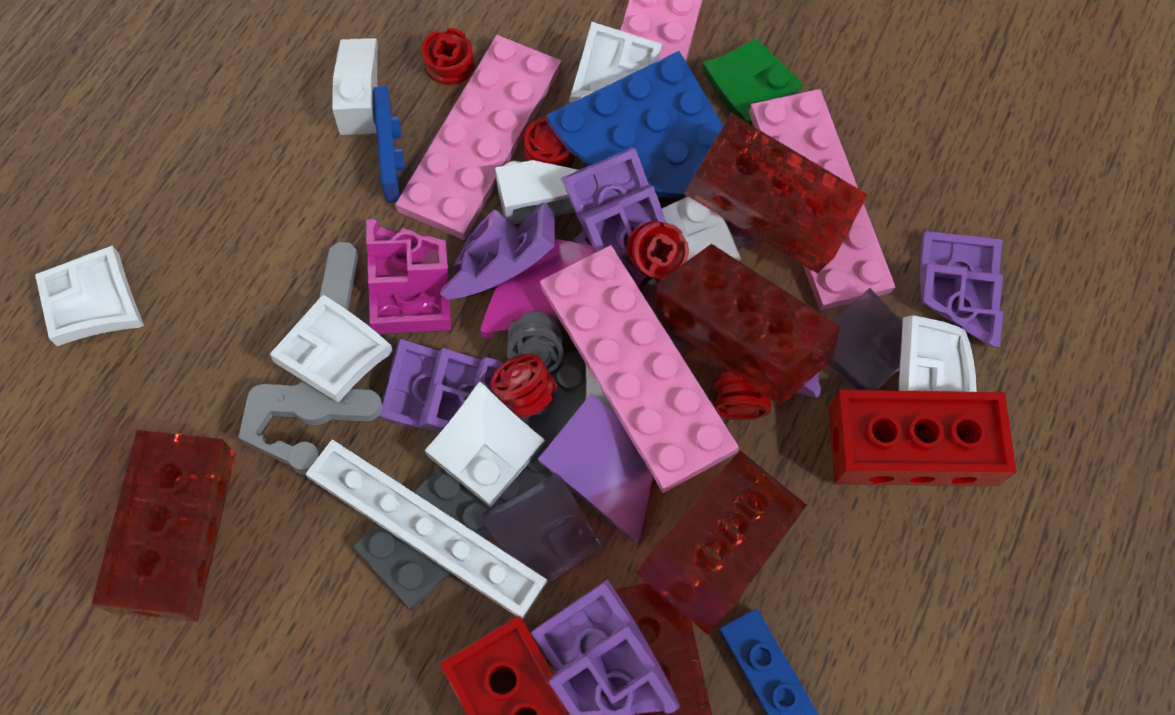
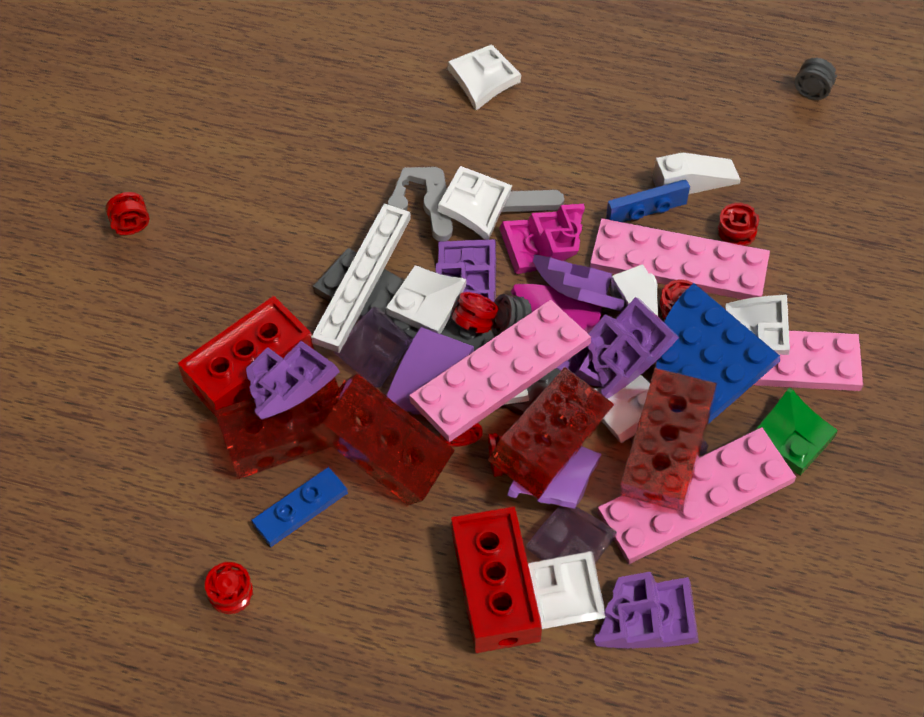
camera: 85 degrees right, 10 degrees down
(144, 508) = (340, 148): clear red brick -> none
(657, 249) = (598, 368): red wheel -> none

